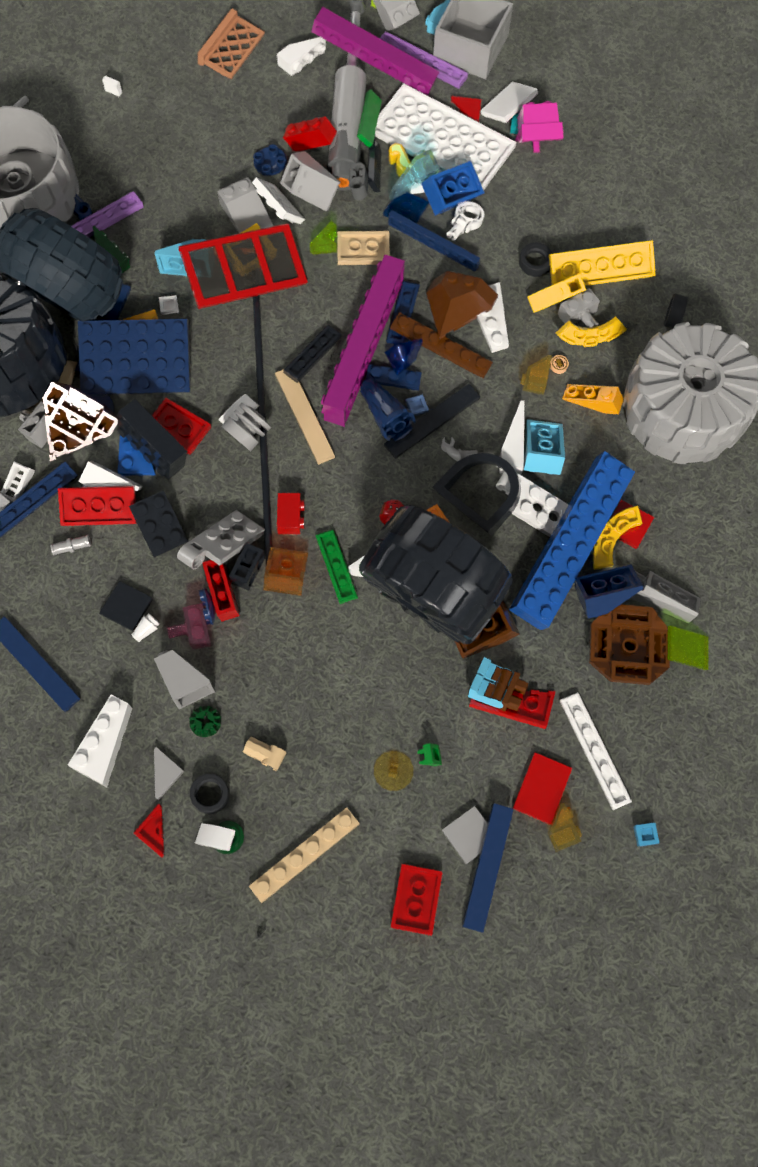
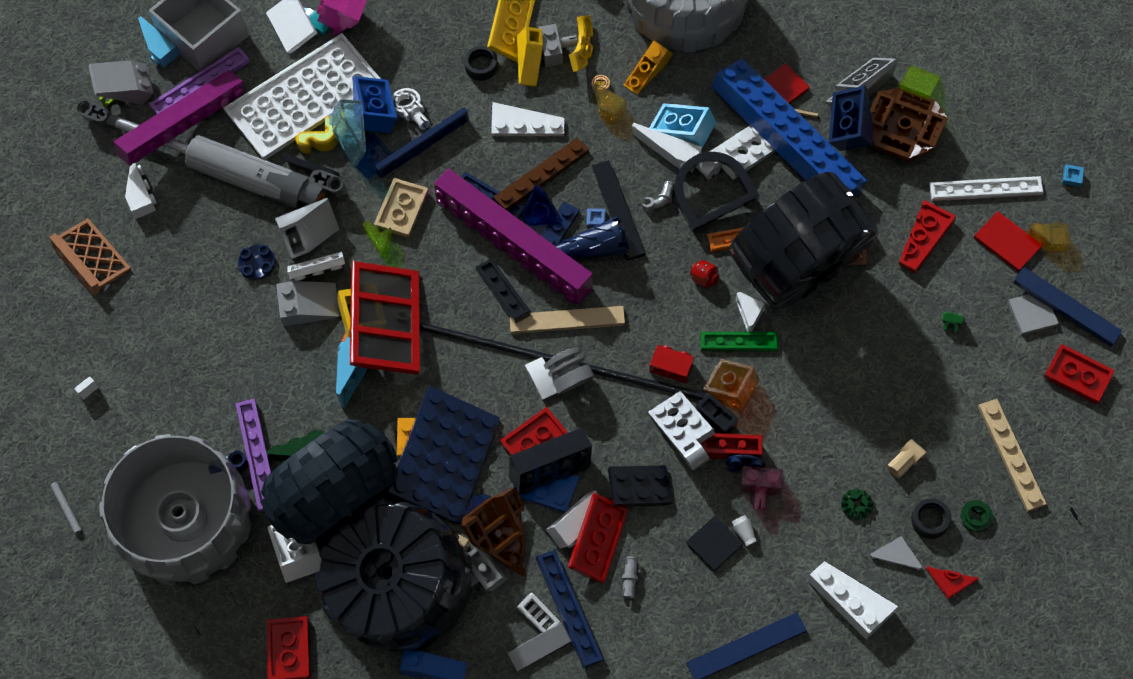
camera: 65 degrees left, 5 degrees down
(168, 305) = (387, 409): white tile -> none
(182, 679) = (814, 507): light grey slope -> none
(215, 837) = (976, 522): white slope -> none
(309, 134) = (252, 209): red brick -> none
(369, 118) = (256, 150): green tile -> none
(393, 771) = (954, 356): clear yellow piece -> none
(457, 300) = (502, 143): reddish brown wedge -> none
(468, 106) = (277, 60): red tile -> none
(496, 686) = (908, 240): hips -> none
(612, 531) = (782, 85): yellow tile -> none

